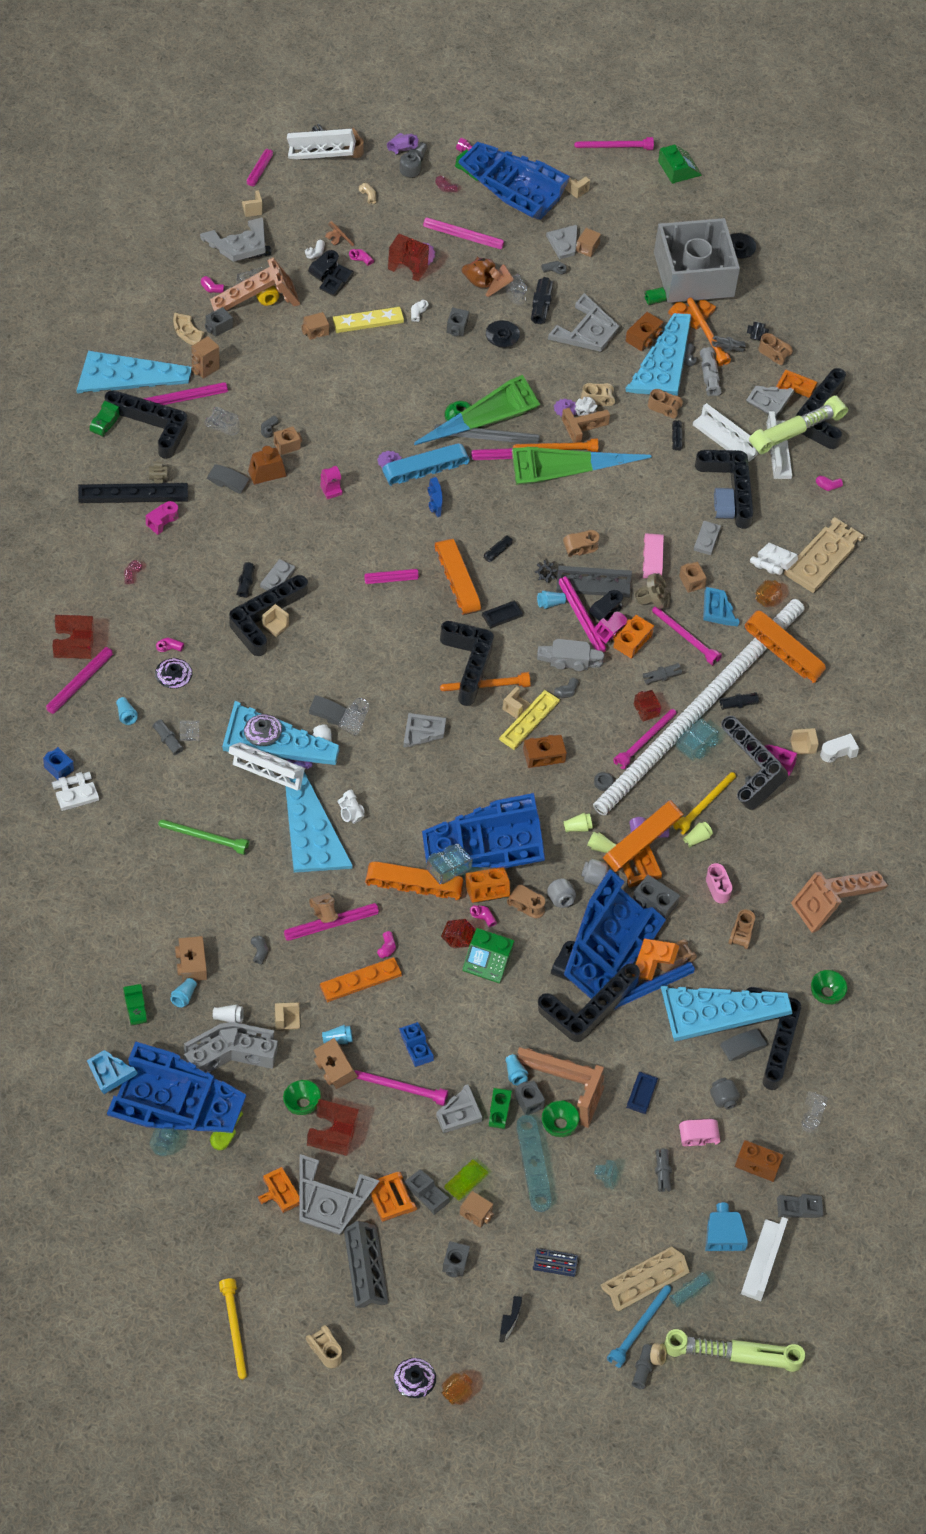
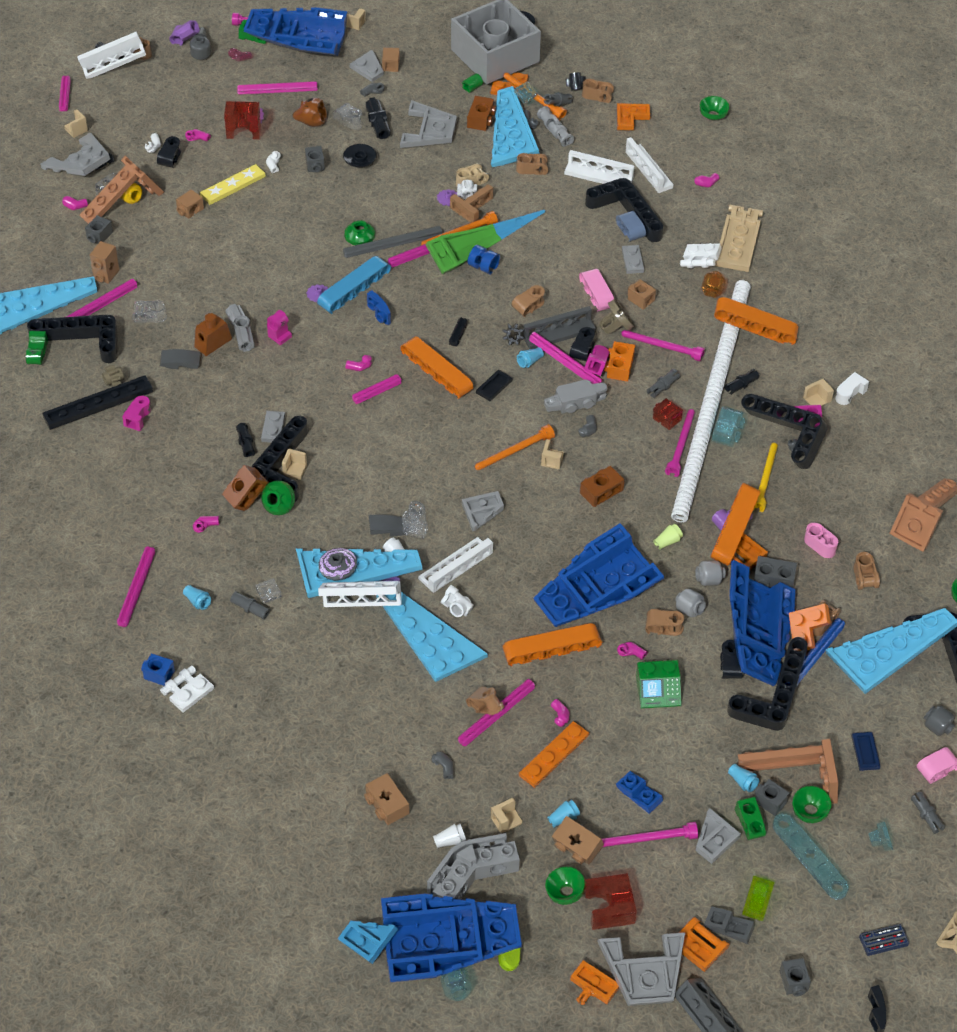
camera: 20 degrees left, 5 degrees down
(81, 640) = (119, 547): clear red piece -> none
(130, 569) = (132, 468): clear pink arm -> none
(135, 1004) = (355, 865): green leg -> none
(170, 678) = (222, 552): dish -> none
(181, 995) = (396, 837): medium azure cone -> none
(186, 330) = (71, 248): tan tile -> none
(217, 626) = (244, 488): none -> dark orange brick
(237, 845) = (371, 677): bright green piece -> none
(248, 647) = (285, 497): none -> green piece
(266, 426) = (191, 302): dark grey arm -> none
(287, 440) = (217, 305): medium nougat brick -> none
(299, 468) = (241, 327): none -> light grey piece
(337, 233) = (166, 122): nougat piece -> none
(337, 280) = (186, 161): black slope -> none
(366, 188) = (176, 81): tan arm -> none
(372, 774) = (458, 566): none -> white fence
(388, 547) = (359, 366): none -> dark pink arm
(449, 863) = (579, 615): clear light blue brick -> none
(458, 933) = (621, 675): clear red brick -> none
(477, 1209) = (786, 921): medium nougat brick -> none
(480, 644) = (492, 416): black beam -> none
(487, 884) = (621, 621): orange brick -> none
(501, 279) = (333, 112): nougat piece -> none
(505, 402) = (394, 210): bright green plate -> none
(529, 719) = (570, 465): light yellow tile -> none
(560, 484) = (483, 259): none -> blue wheel
(600, 843) = (697, 546): yellowish green cone -> none
(603, 781) = (667, 493): dark grey tile -> none
(677, 435) = (557, 186): black axle -> none
(698, 326) = (525, 92): none -> clear light blue tile
(698, 834) = (777, 505): yellowish green cone -> none
(717, 608) = (677, 312): dark azure wing -> none
(742, 1044) = (927, 671): dark grey slope -> none
(764, 440) = (639, 160): yellowish green piece -> none
(770, 399) = (618, 130): light grey wing -> none
(824, 432) = (665, 139): black beam -> none
(882, 404) = (716, 104): none -> green piece

